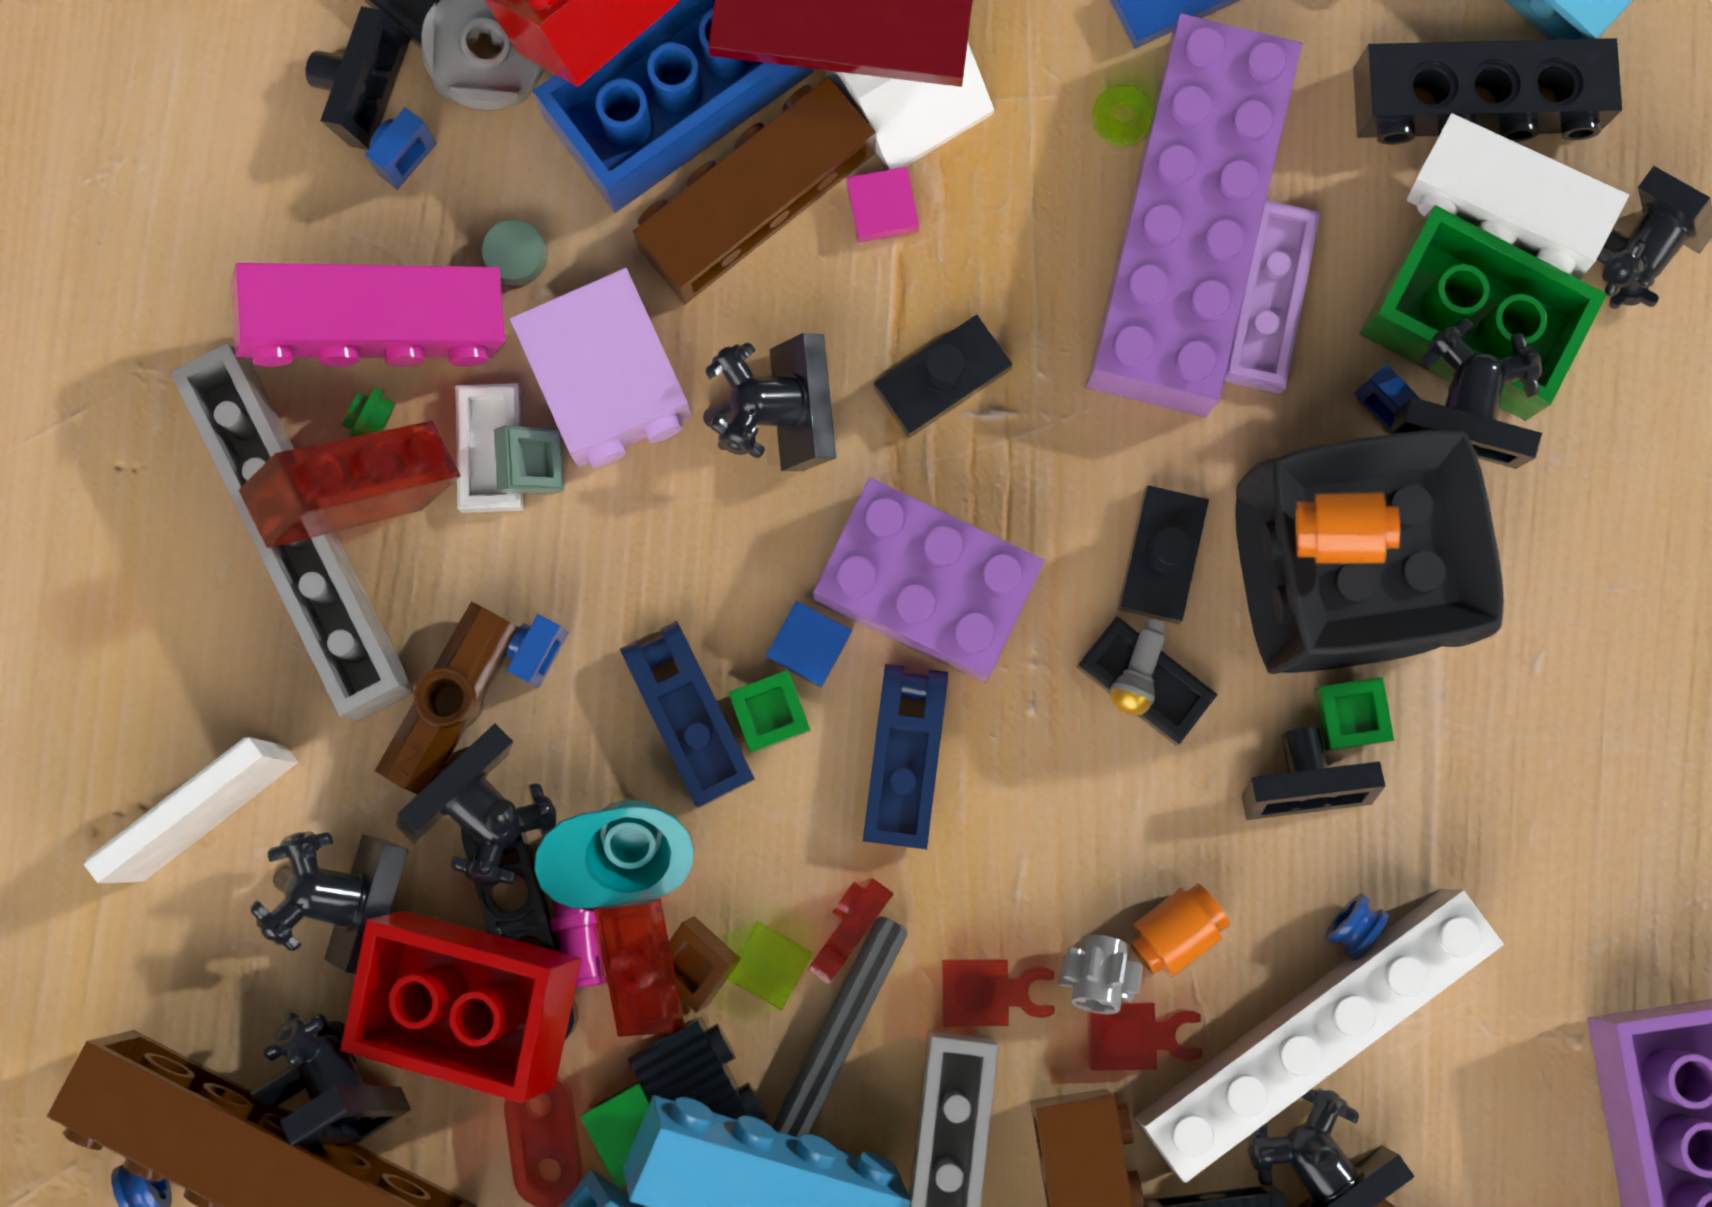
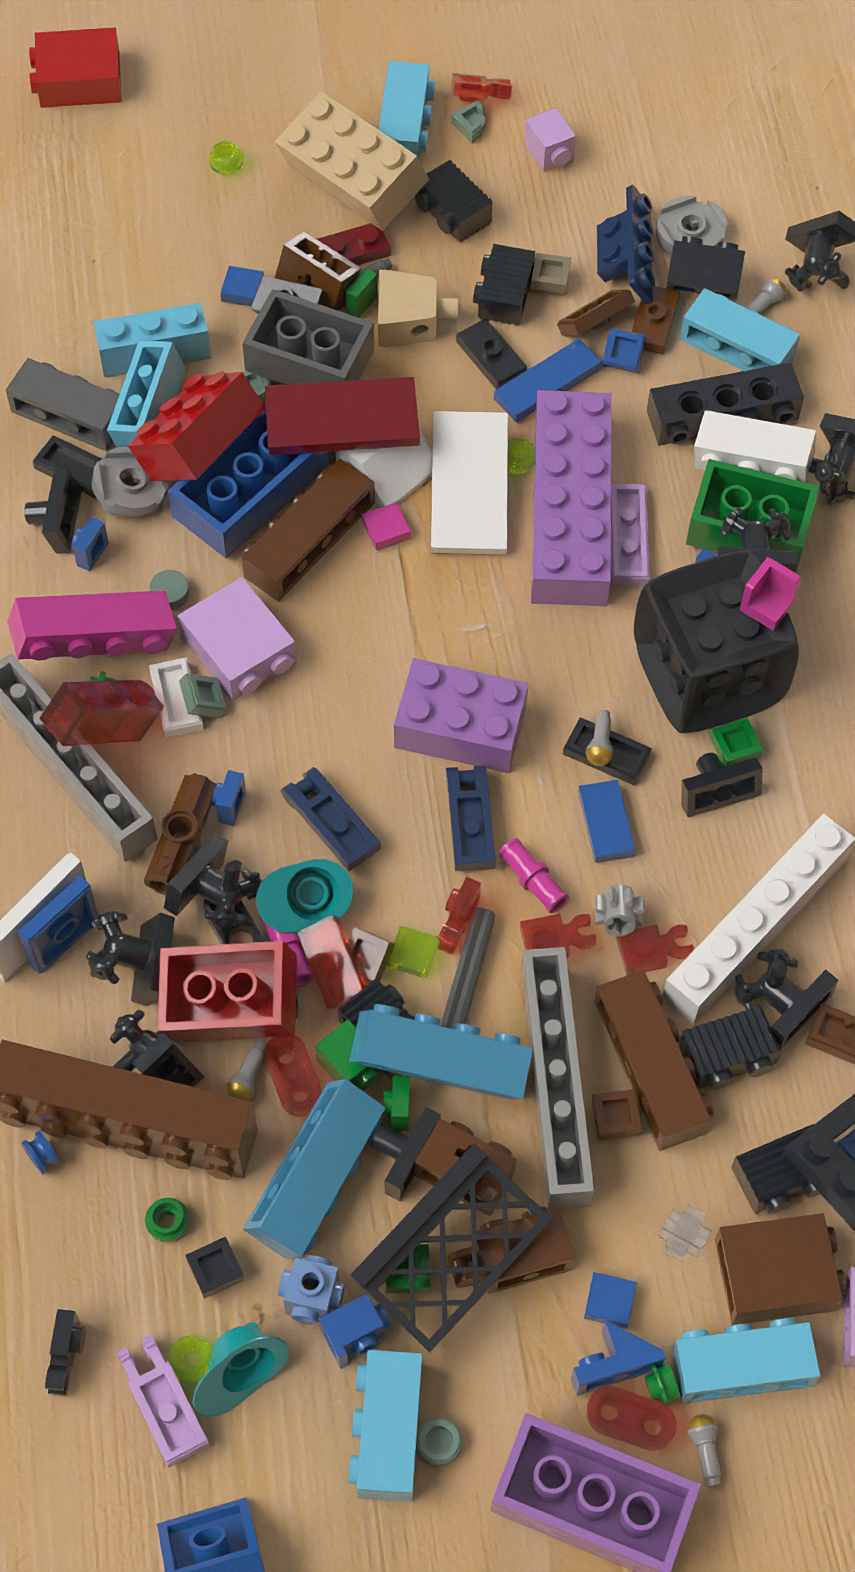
camera: 10 degrees left, 20 degrees down
(224, 832) = (59, 925): none -> blue tile
(465, 1136) = (243, 1083): none -> light grey piece
(769, 711) = (381, 806): green plate -> none
(791, 399) = (353, 629): black piece -> none
(808, 644) = (396, 768): blue tile -> none
(942, 376) = (443, 609): black tile -> none
(982, 879) = (534, 875): none -> dark pink pin
(1033, 154) = (469, 482): none -> white tile
(1117, 804) = (606, 821): none -> blue tile
(1163, 554) = (599, 680): black tile -> none
(1179, 930) = (661, 879): orange brick -> none
(1346, 528) = (693, 602): orange brick -> none
(1357, 926) = (768, 856): blue bush -> none
(1480, 539) = (770, 593): none -> dark pink panel

